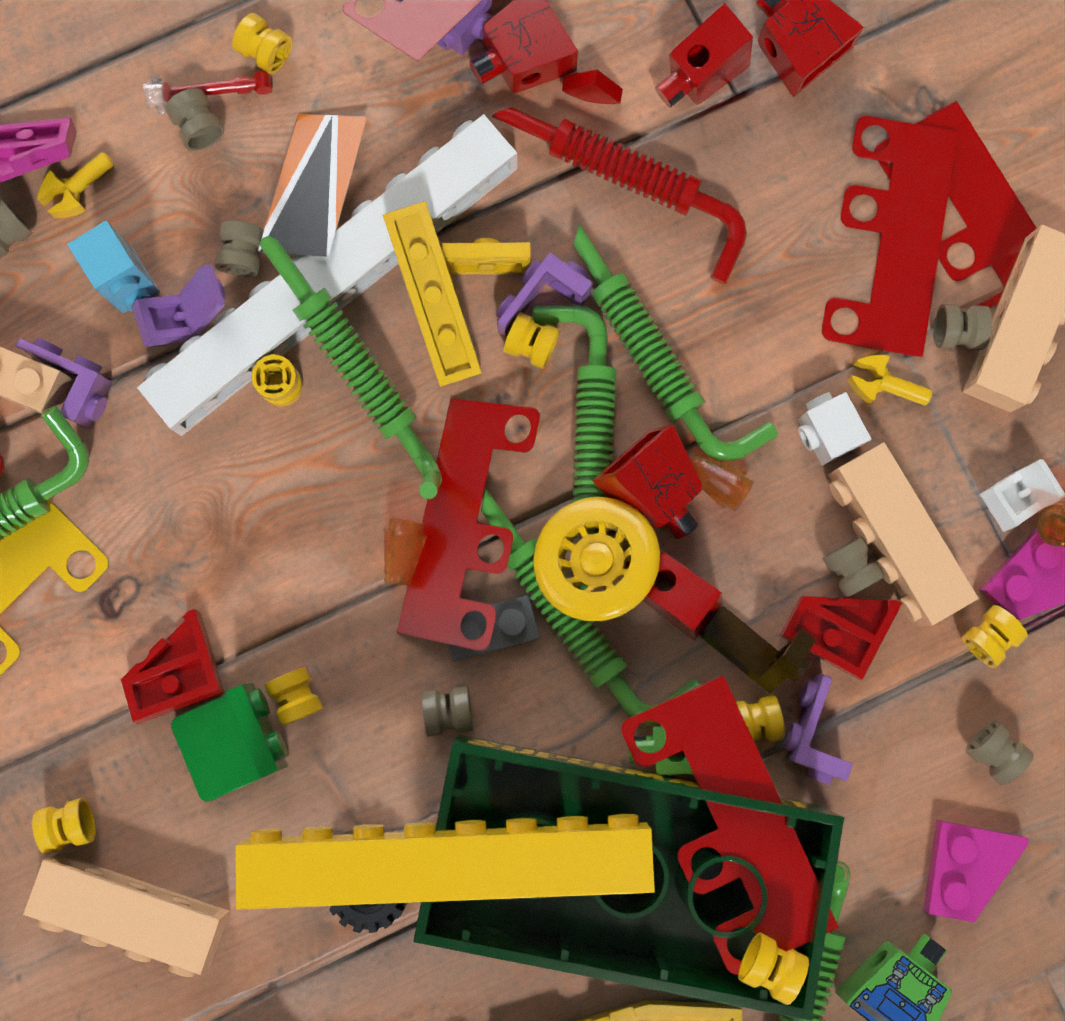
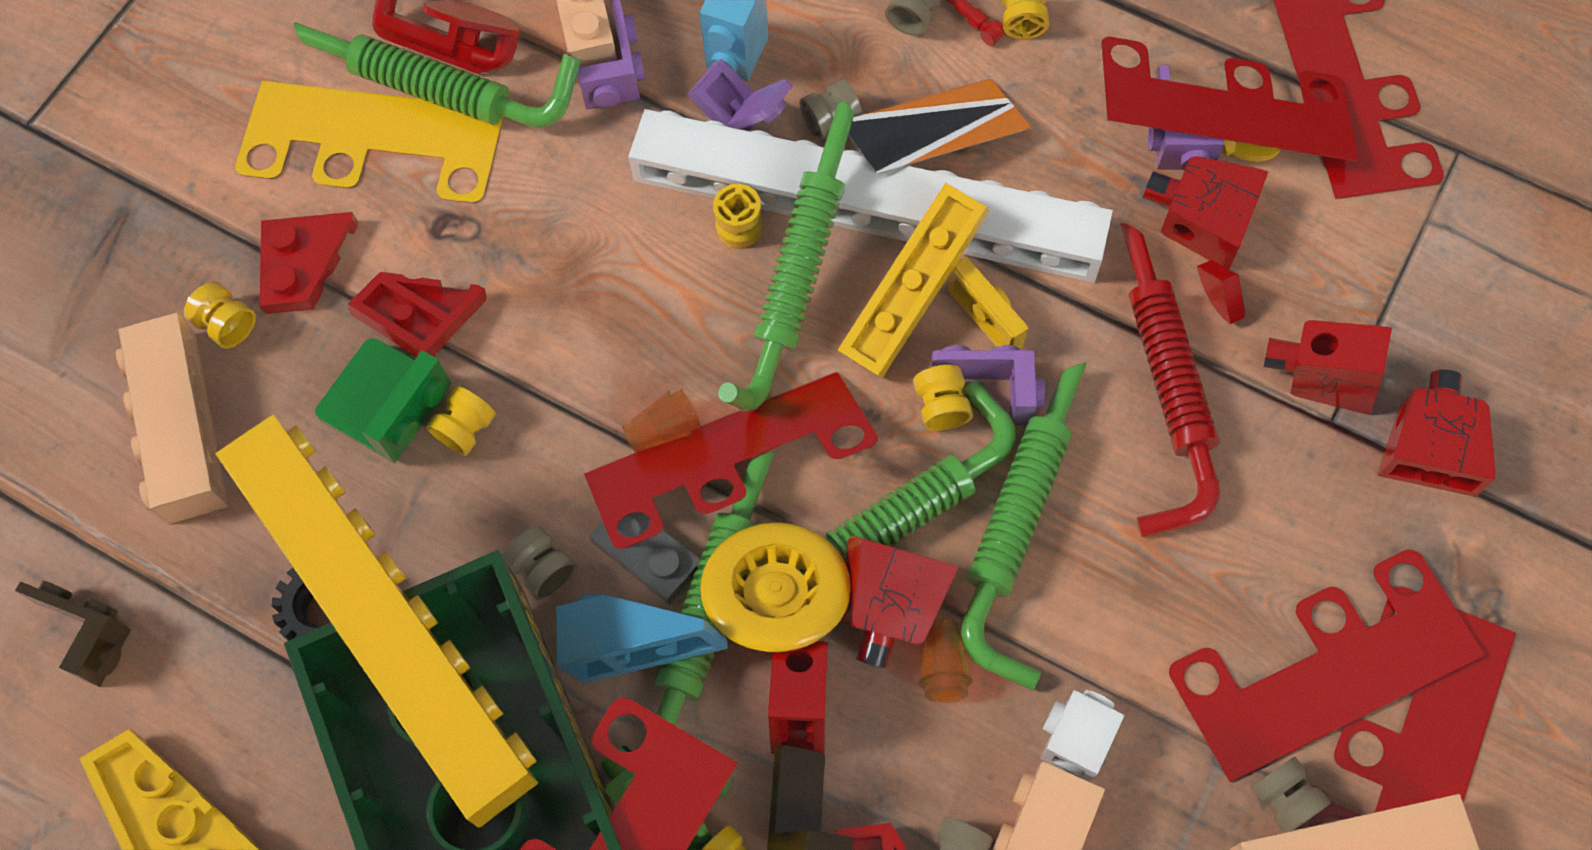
camera: 60 degrees right, 15 degrees down
(56, 733) = (298, 258): none -> red wing
(544, 697) = (616, 636): none -> dark azure slope
(886, 382) = (1174, 762): yellow bar -> none

